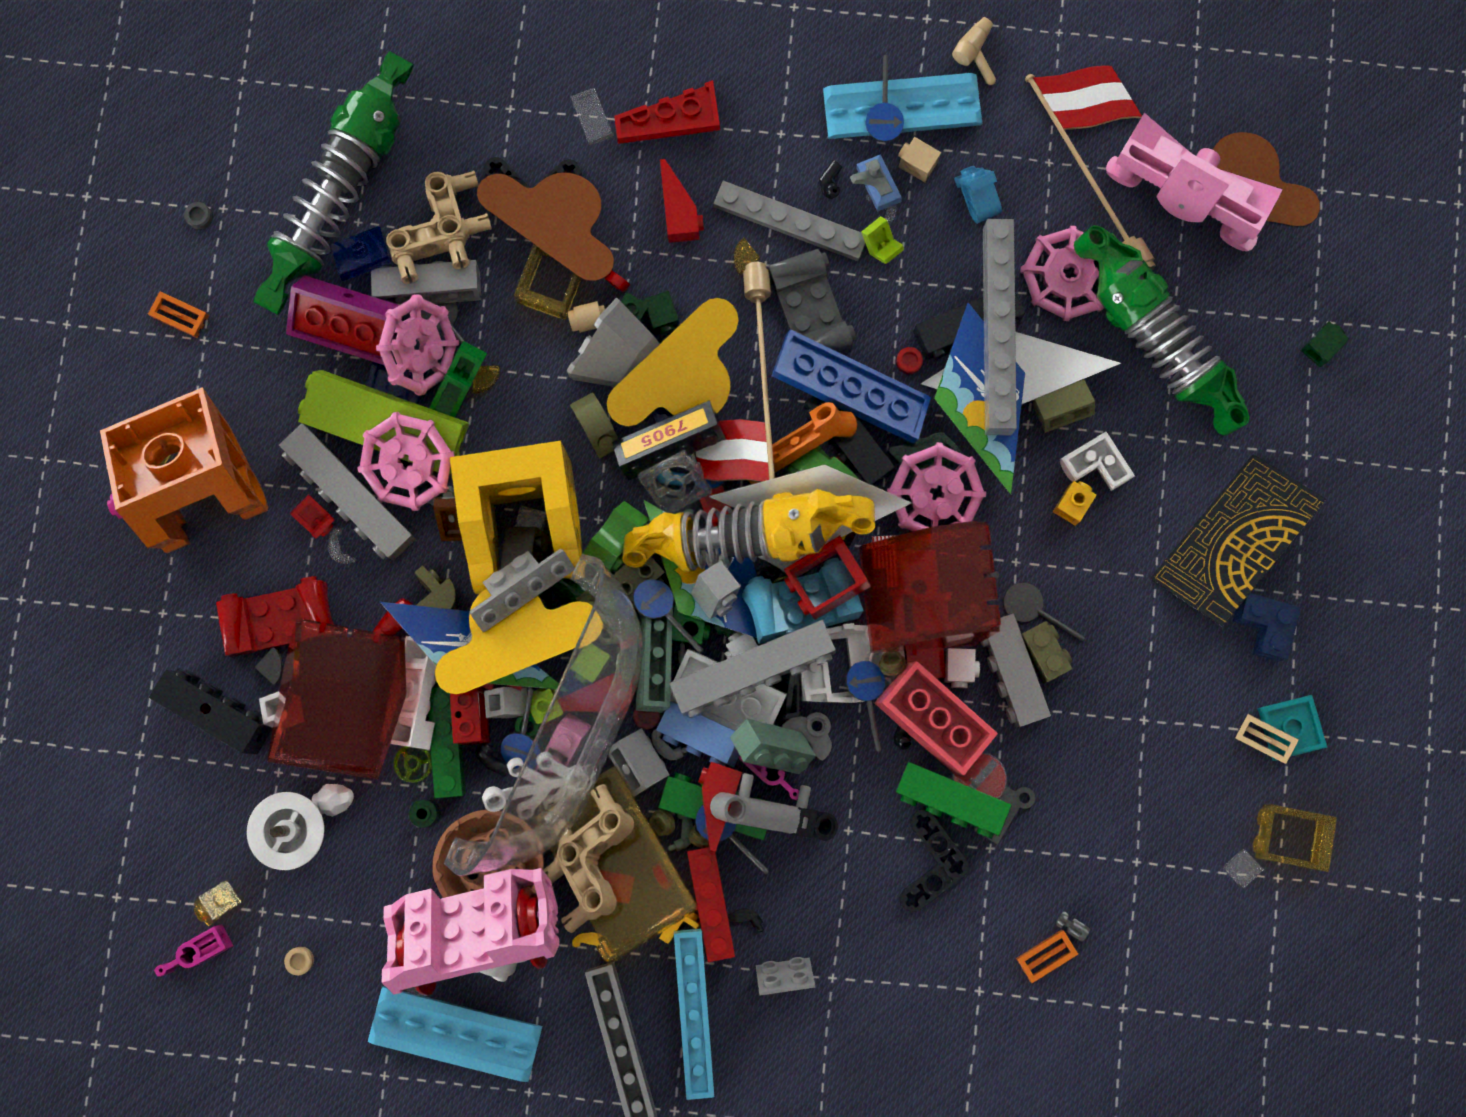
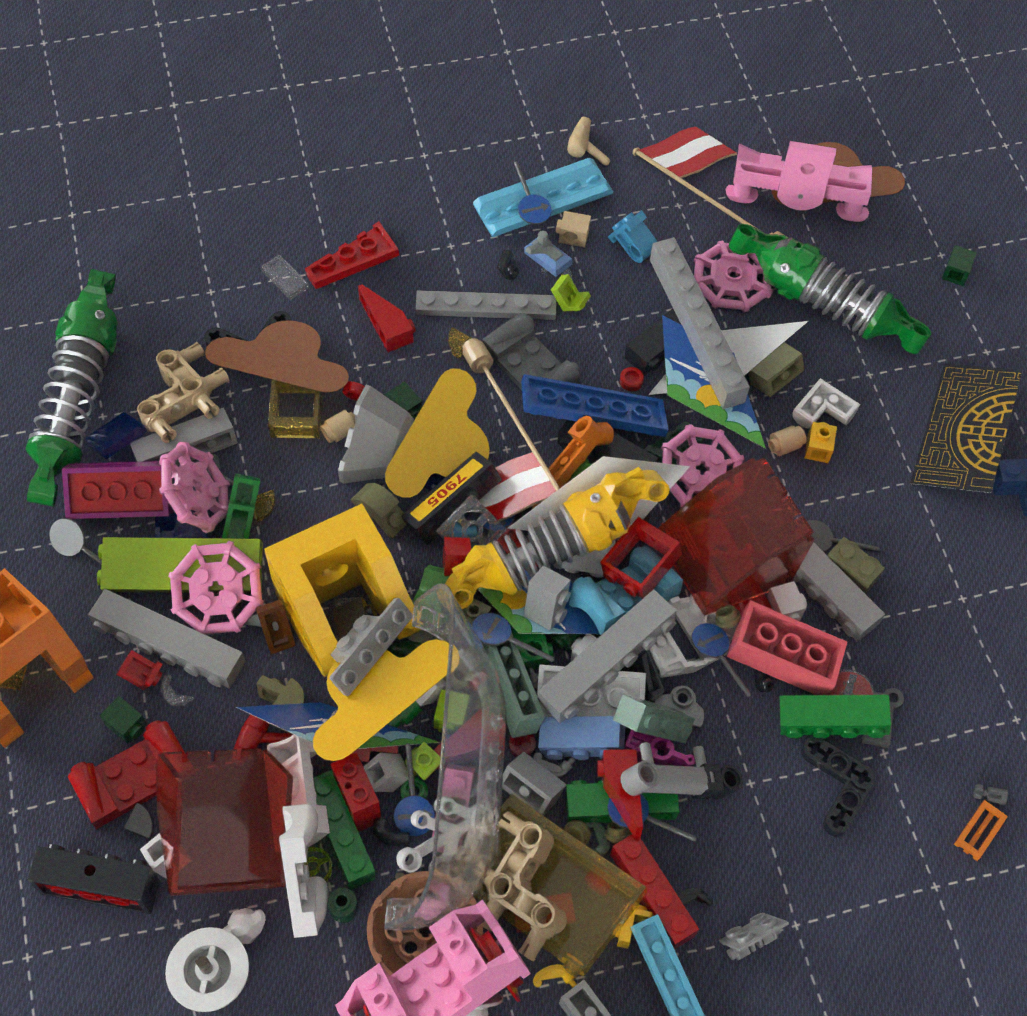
camera: 25 degrees left, 20 degrees down
(283, 562) = (123, 720): none -> dark green brick
(285, 353) = (69, 539): none -> piece
(388, 791) = (306, 894): none -> white piece
(648, 506) = (454, 552): none -> red brick
(1040, 488) = (787, 440): none -> tan brick

